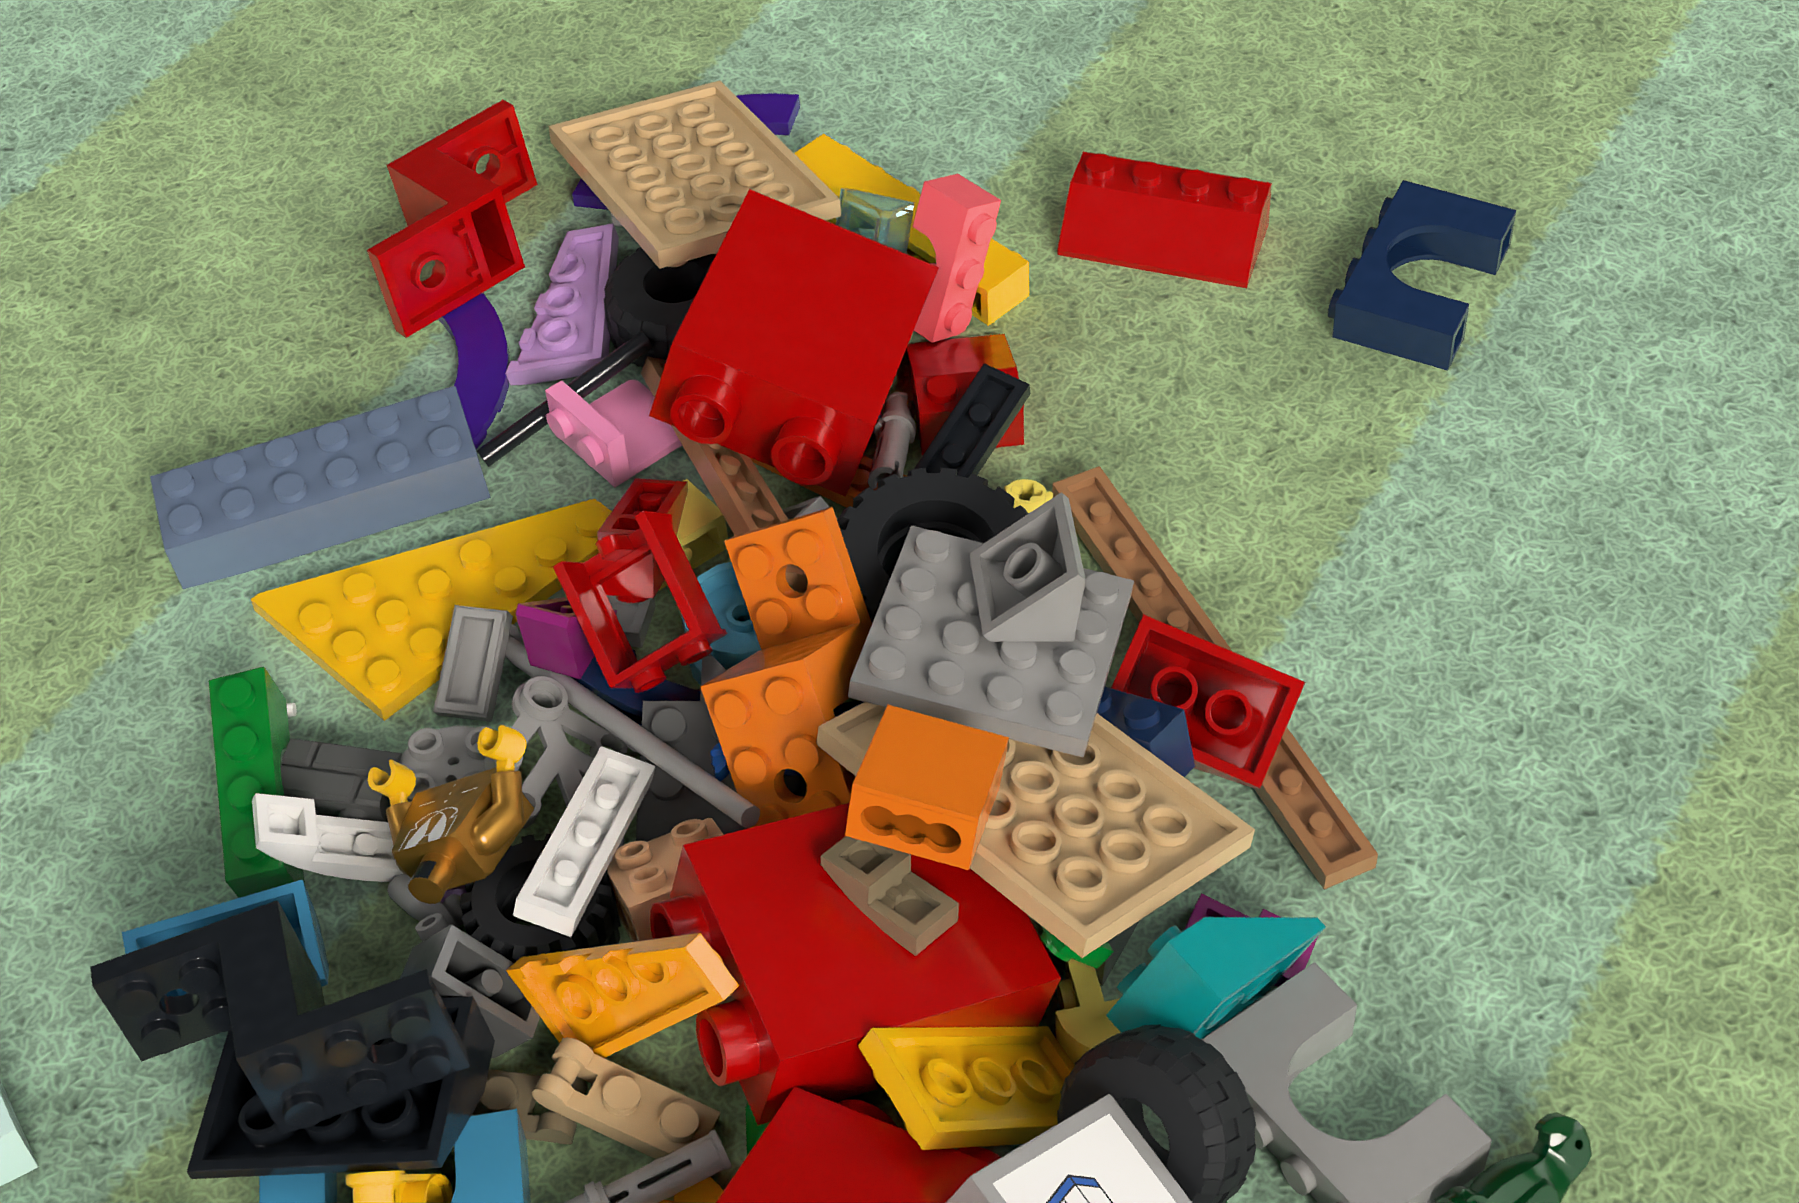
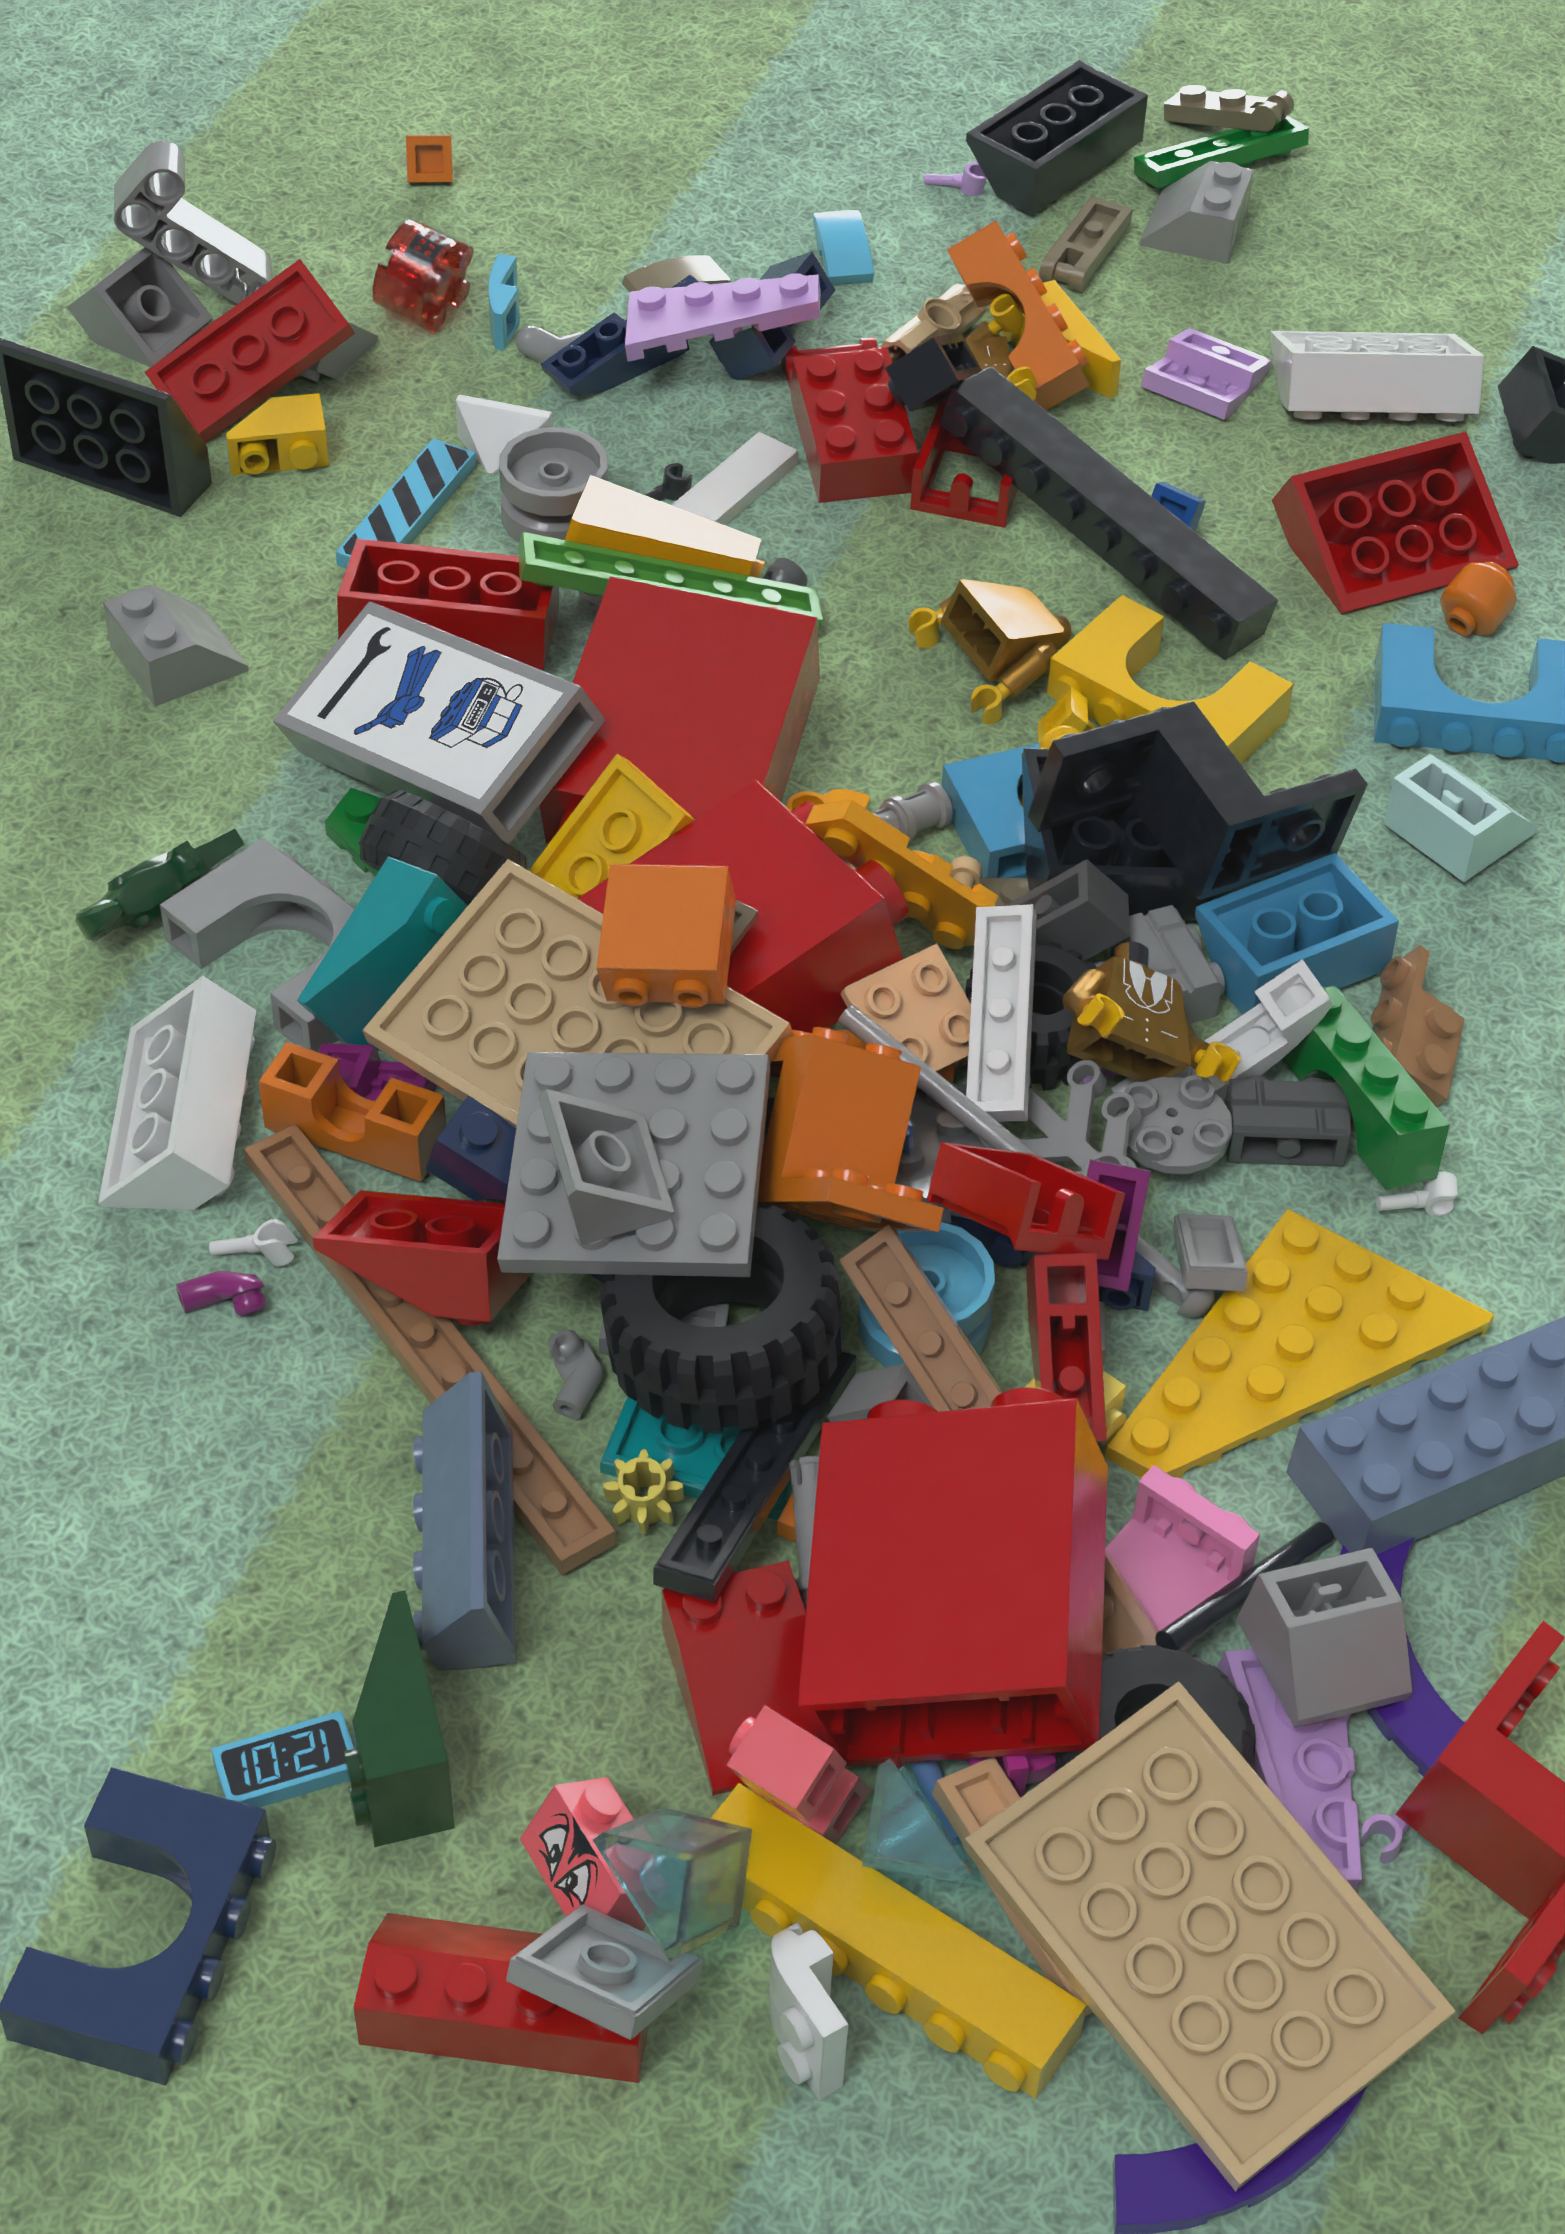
camera: 165 degrees right, 0 degrees up
(168, 871) = (1417, 1026): none -> medium nougat bracket
(370, 947) = (1177, 953): none -> light grey brick
(524, 342) = (1329, 1636): none -> light grey slope
(536, 272) = (1389, 1826): none -> lavender hand
(967, 147) = (803, 2013): none -> white slope
(1044, 211) = (680, 1875): none -> clear light blue slope
(1097, 269) = (565, 1853): none -> coral brick
(1100, 167) = (603, 1971): none -> light grey tile
(1177, 466) = (465, 1529): none -> sand blue slope
(1234, 332) = (400, 1756): none -> dark green slope
(1311, 885) = (387, 1133): none -> orange arch
(1322, 373) = (284, 1761): none -> tile
(1353, 769) = (268, 1238): none -> white hand
(1389, 736) = (221, 1286): none -> magenta arm
(1449, 922) = (180, 1102): none -> white slope

